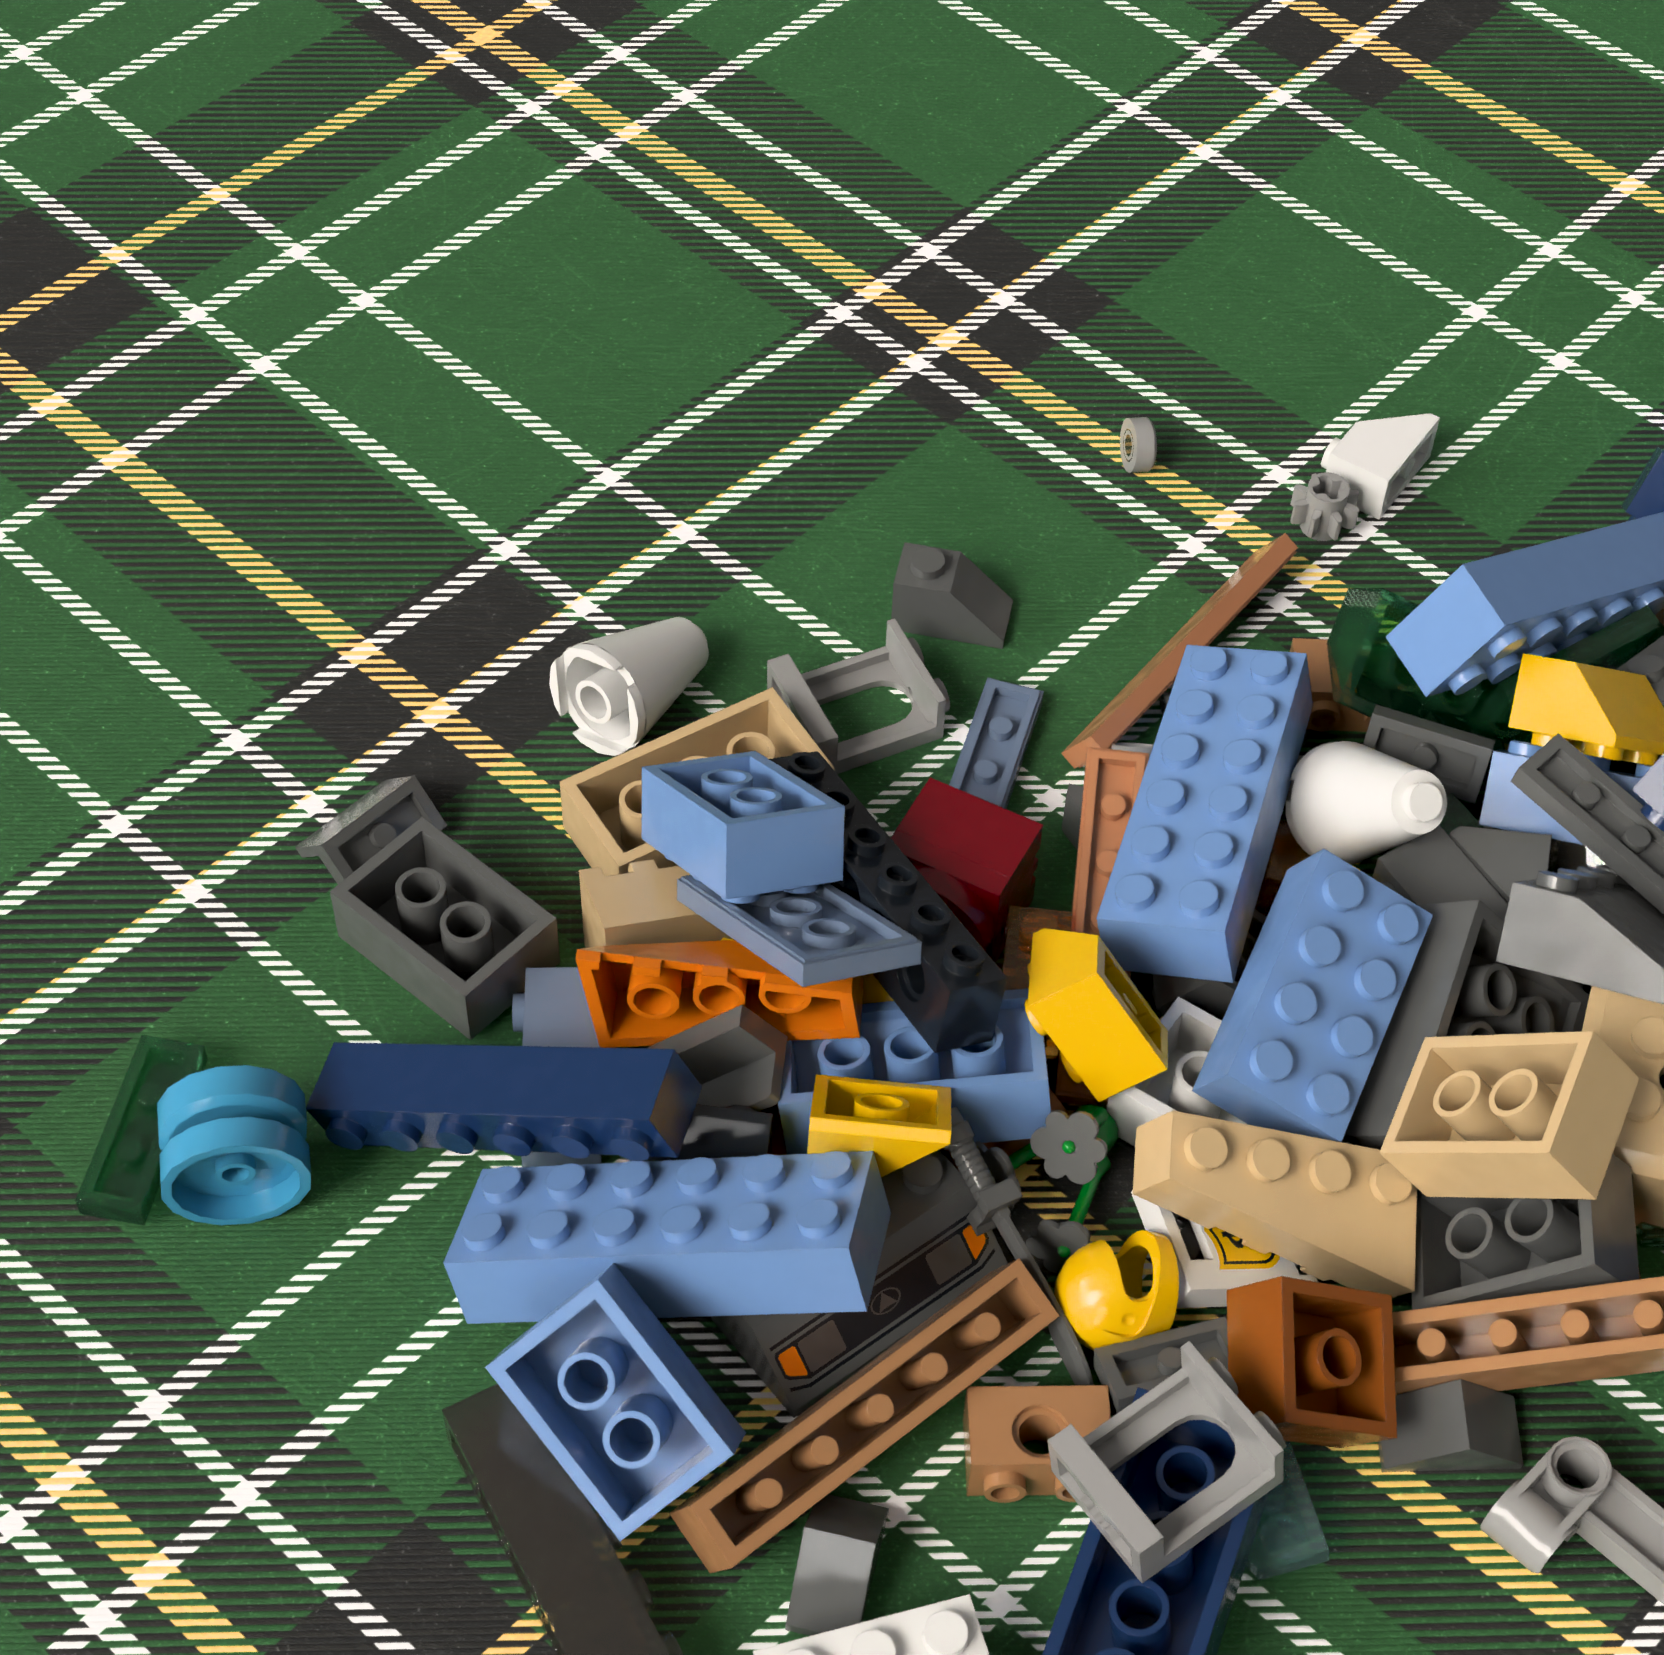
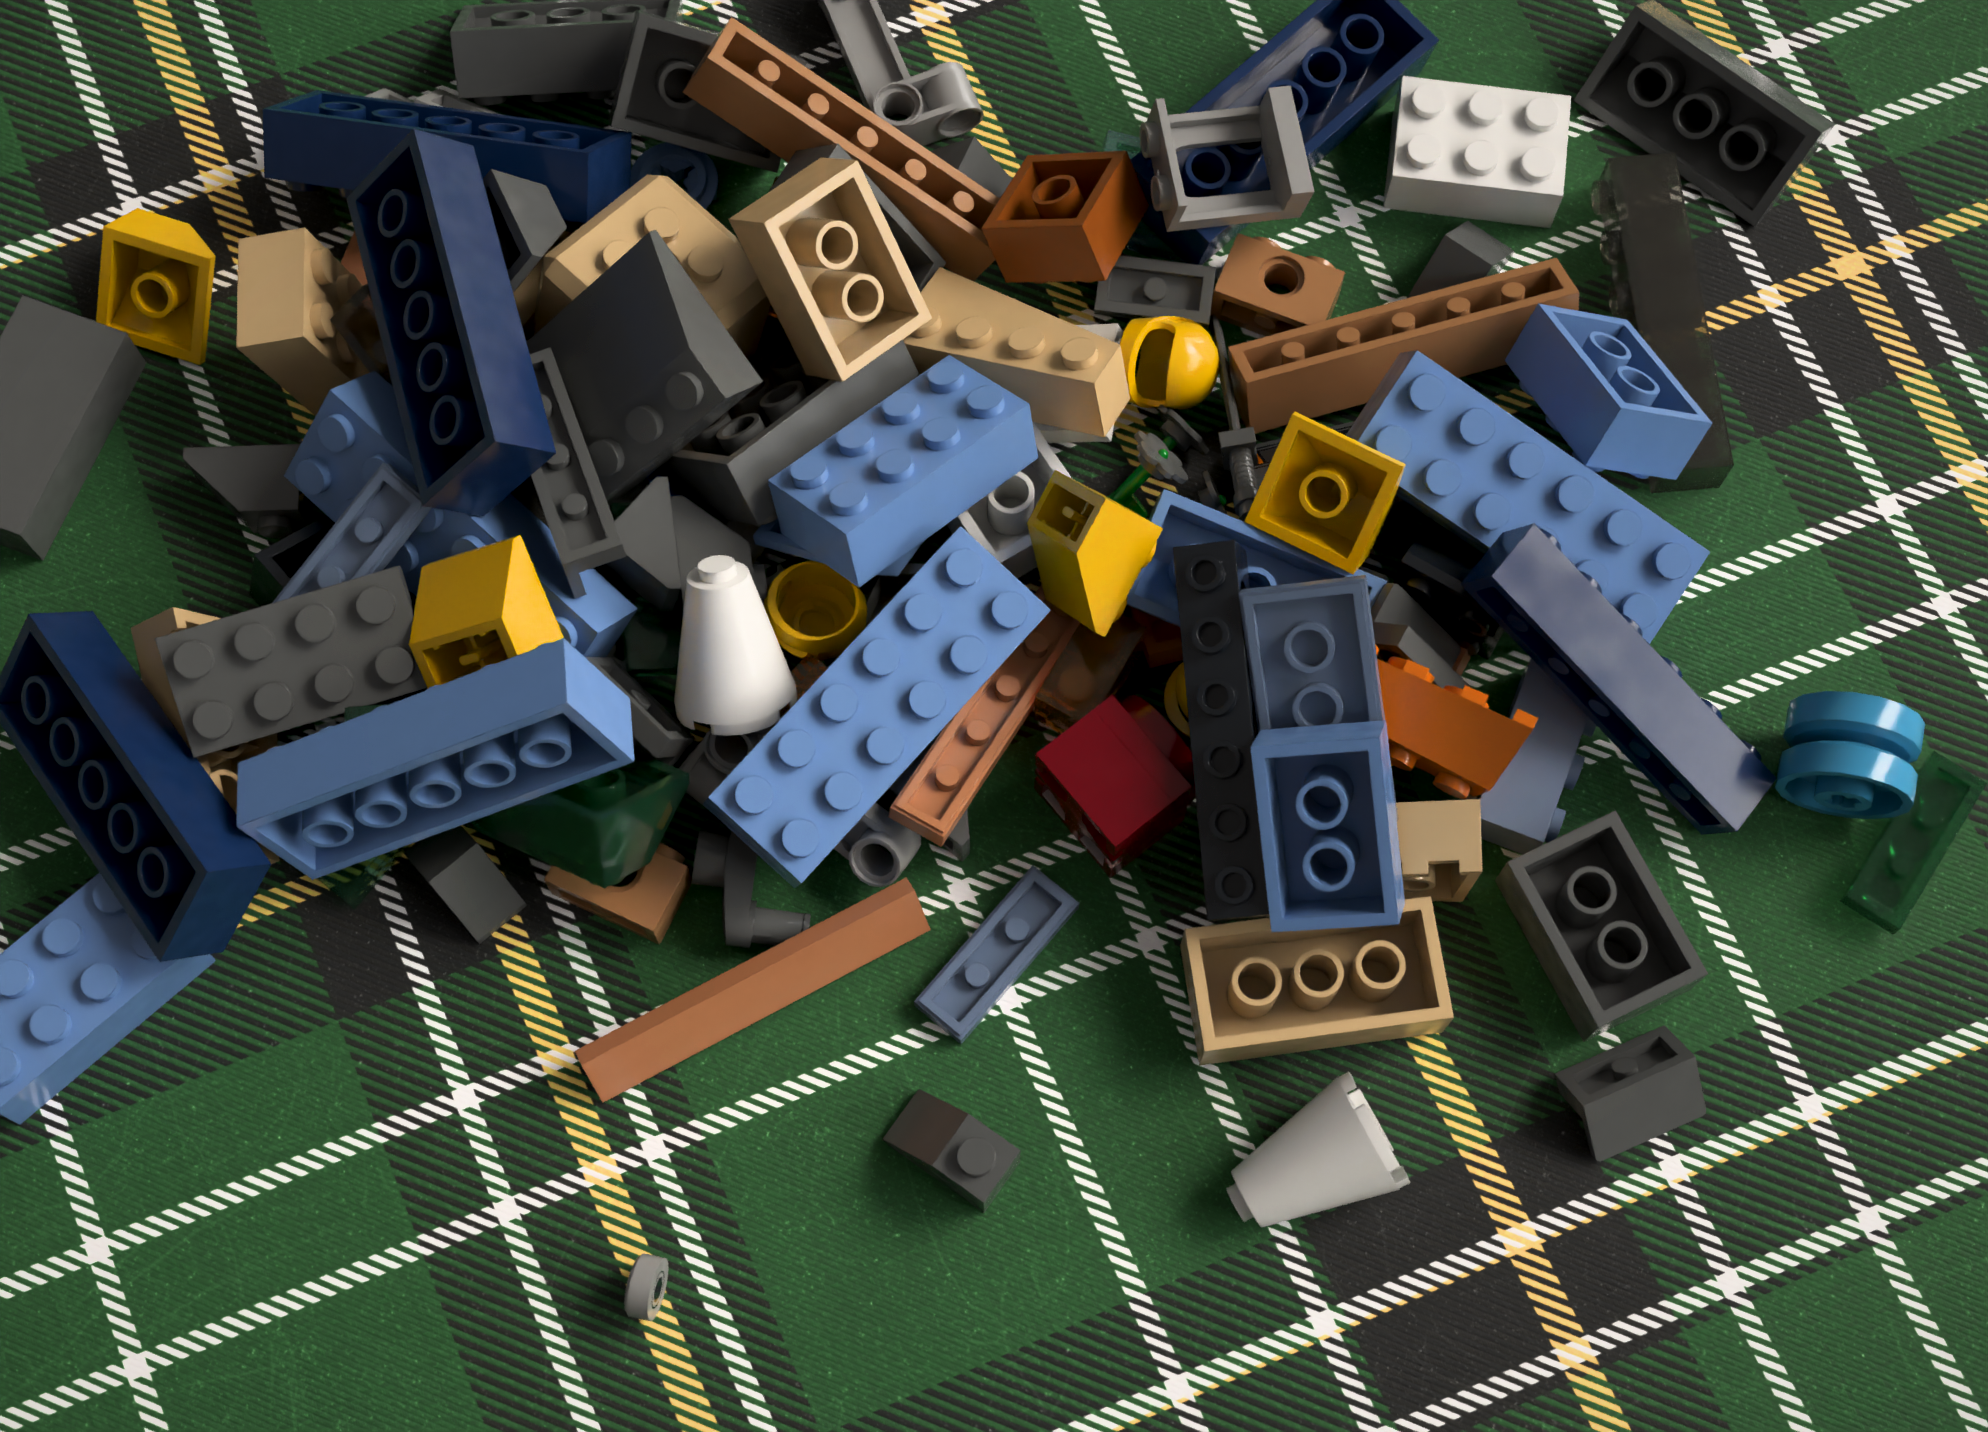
camera: 155 degrees left, 20 degrees up
(895, 666) = (1105, 1015): light grey panel -> none
(1324, 506) = (493, 1101): light grey gear -> none
(1381, 457) = (407, 1154): white slope -> none

